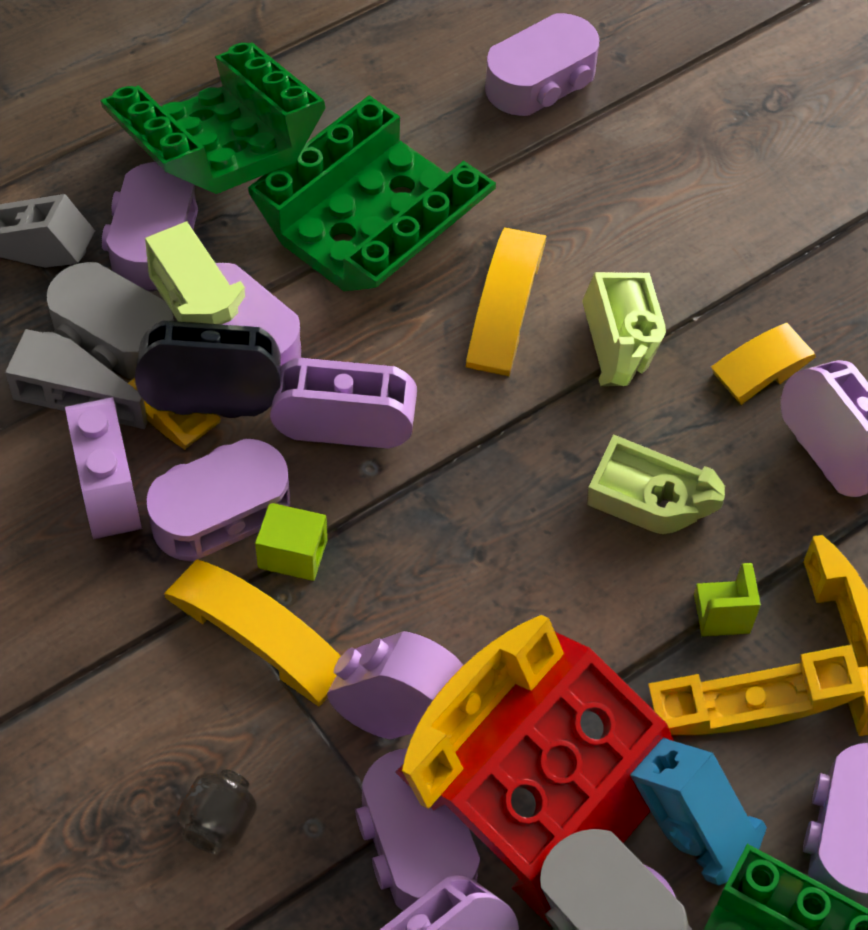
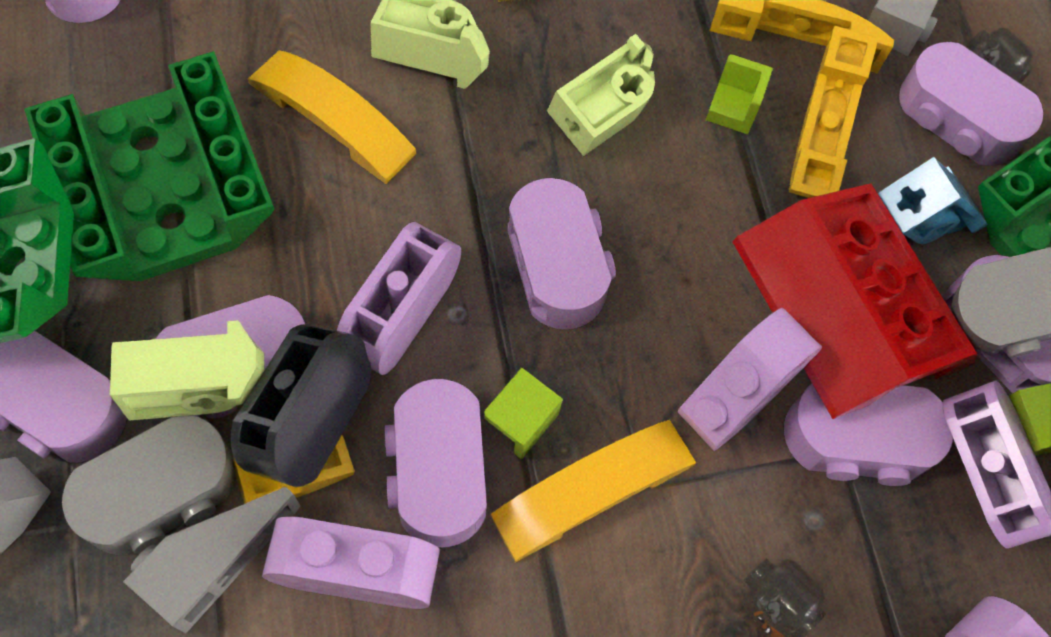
camera: 70 degrees left, 10 degrees up
(462, 512) = (559, 253): none -> lavender brick
(514, 658) = (866, 370): yellow slope -> none

